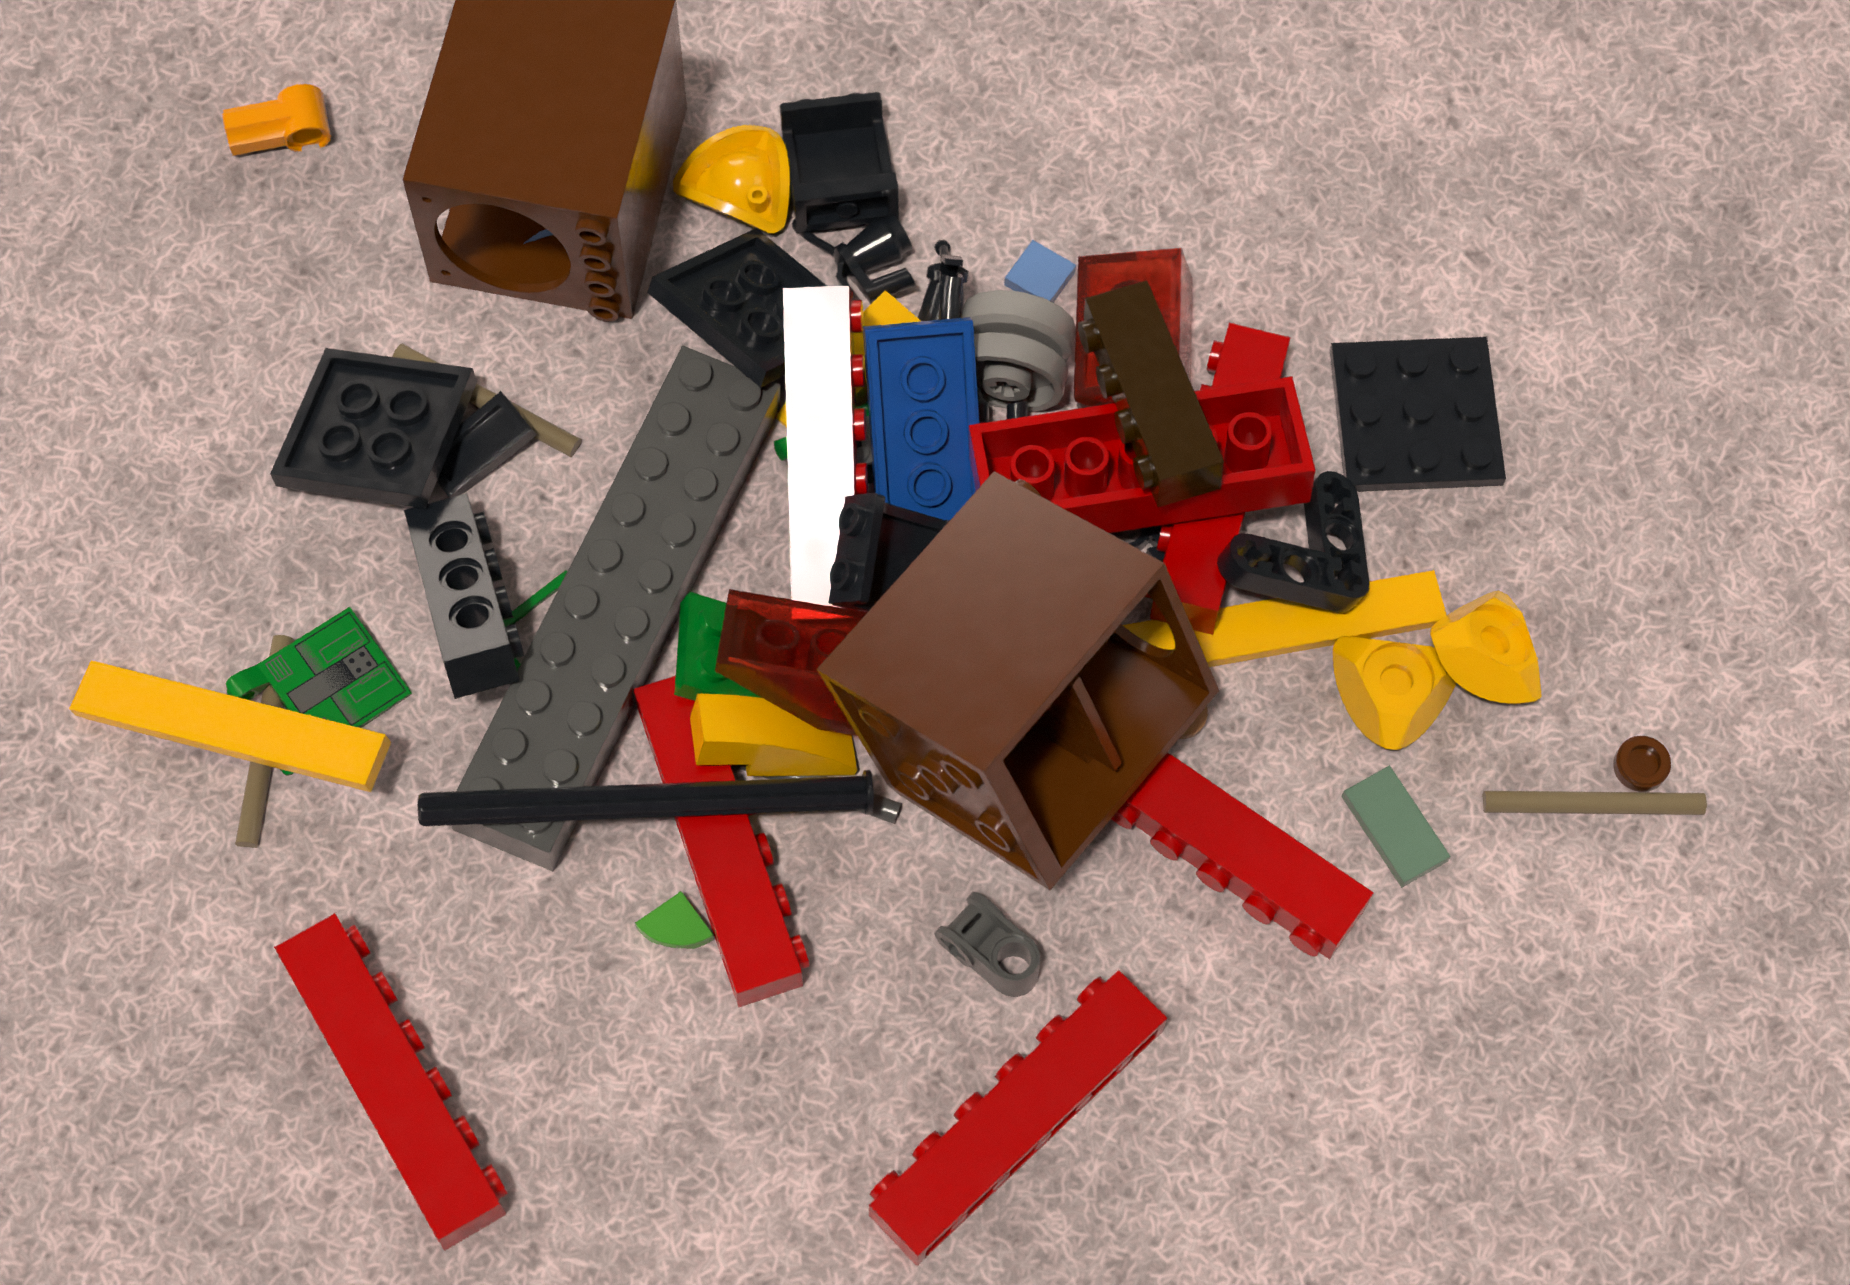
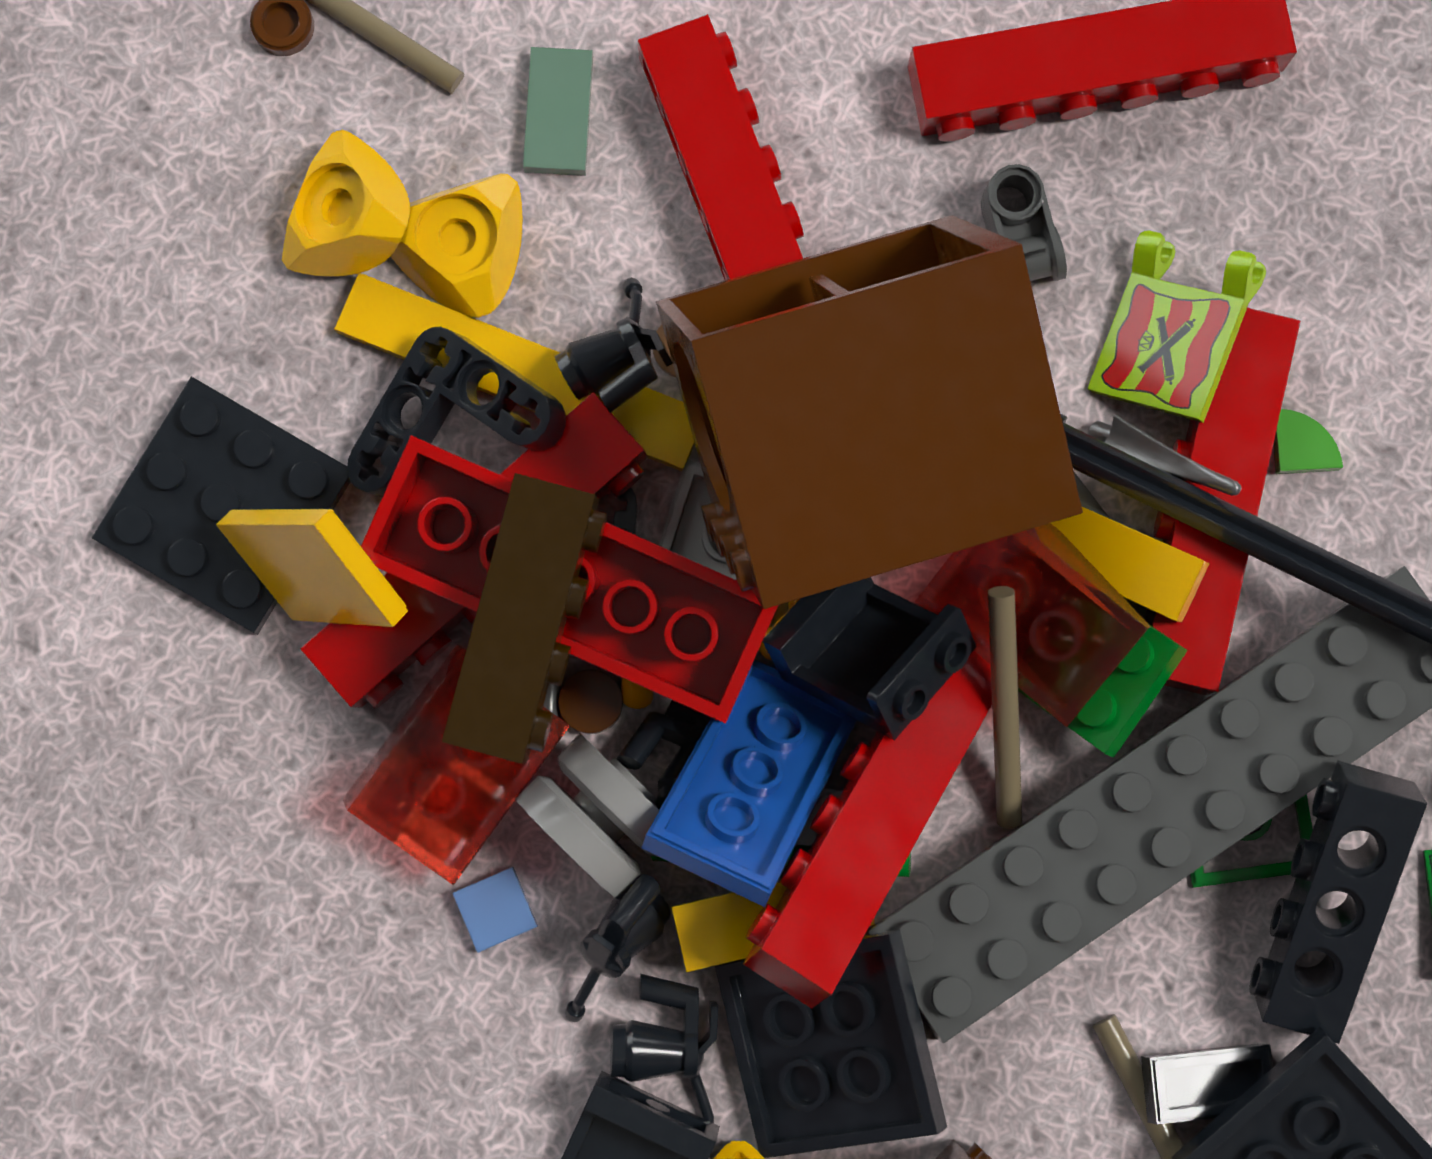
camera: 145 degrees left, 15 degrees up
(781, 581) = (1005, 706): none -> dark tan bar
(797, 833) = (1144, 447): none -> flat silver piece
(827, 930) = (1173, 337): none -> lime flag
(1231, 648) = (614, 361): none -> black piece
(1320, 370) = (313, 566): none -> yellow tile

